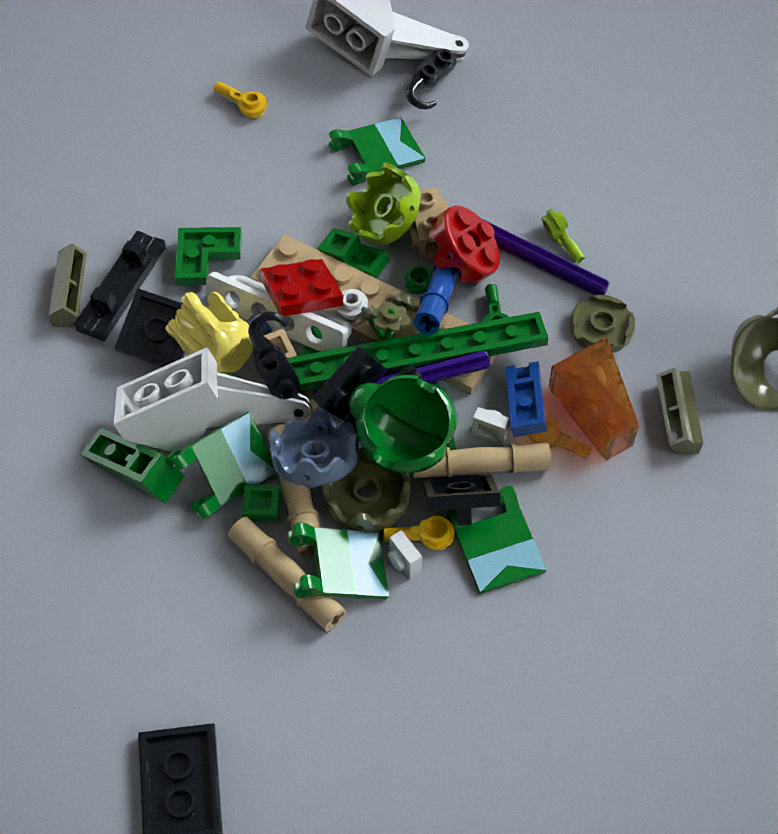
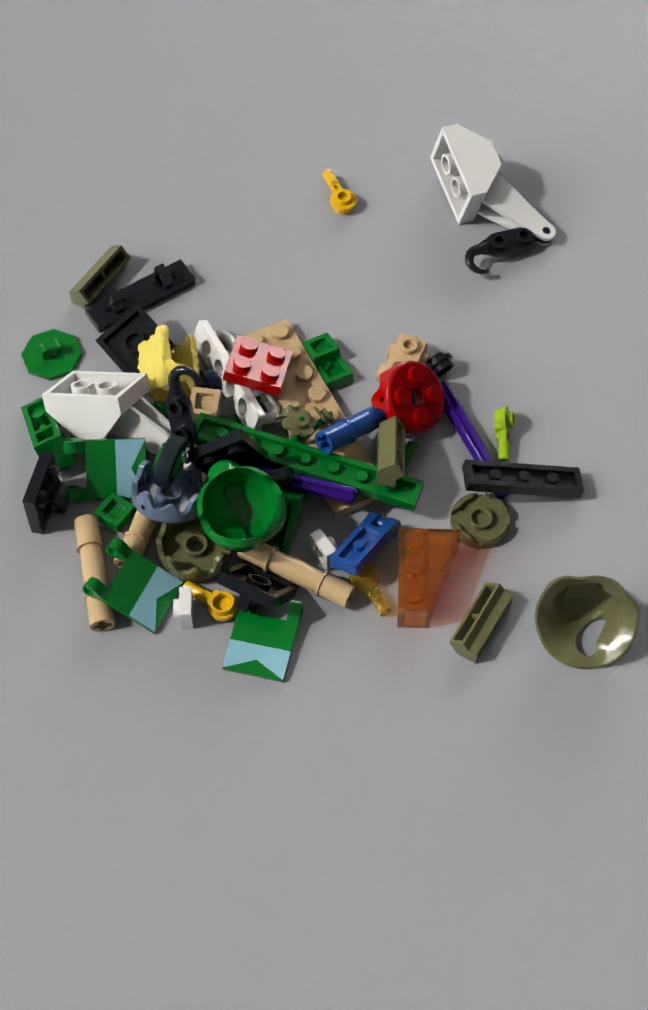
camera: 35 degrees right, 0 degrees up
(71, 387) = (51, 354): none -> green piece
(184, 528) = (43, 493): none -> black hinge
(199, 246) = (217, 295): green plate -> none
(302, 417) = (169, 461): none -> black wheel
(349, 310) = (289, 391): white plate -> none
(370, 207) = (374, 339): lime plate -> none
(377, 144) = (416, 286): green flag -> none
(415, 274) = (359, 402): green plate -> none
(460, 199) = (441, 363): none -> black plate
(491, 302) = (390, 452): none -> olive piece
(616, 265) = (522, 479): none -> black plate

